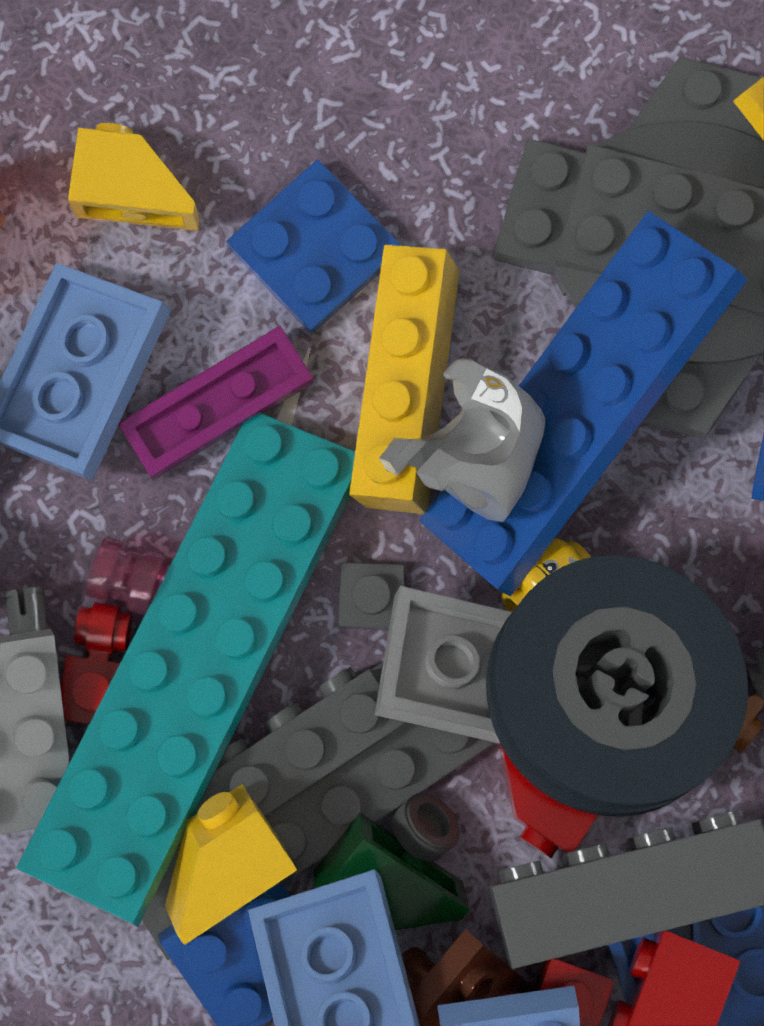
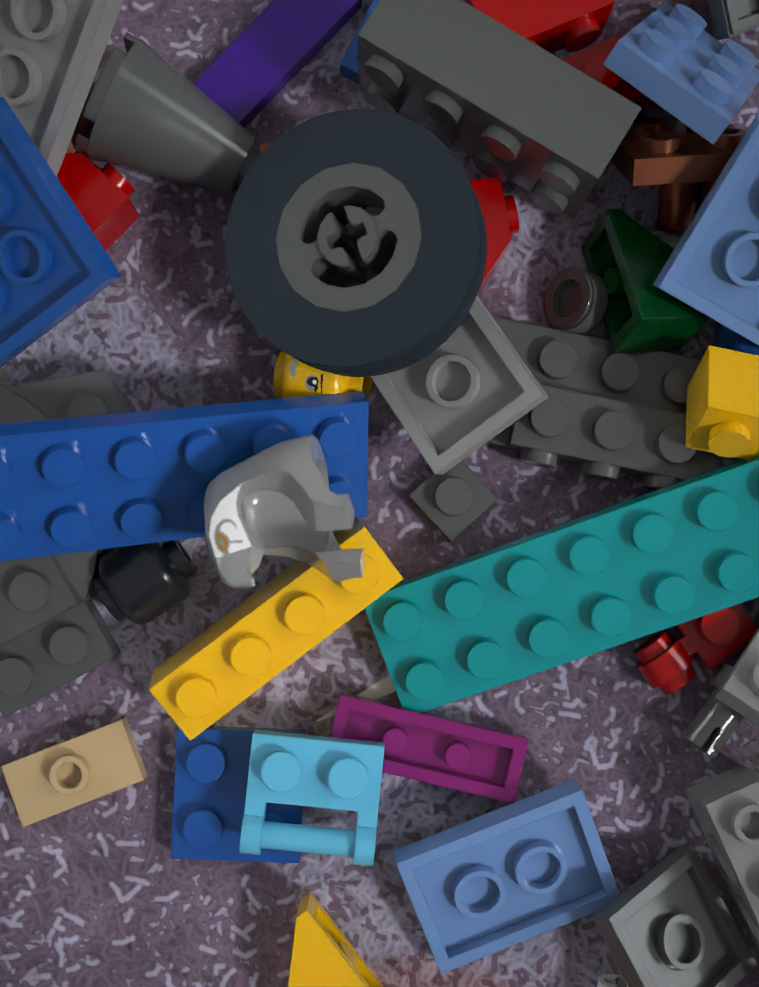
camera: 140 degrees left, 5 degrees up
(125, 575) = (614, 684): clear pink wheel -> none
(274, 308) = (313, 774): none -> medium azure plate
(442, 151) = (74, 772): none -> tan plate
(527, 320) = (143, 580): none -> black head

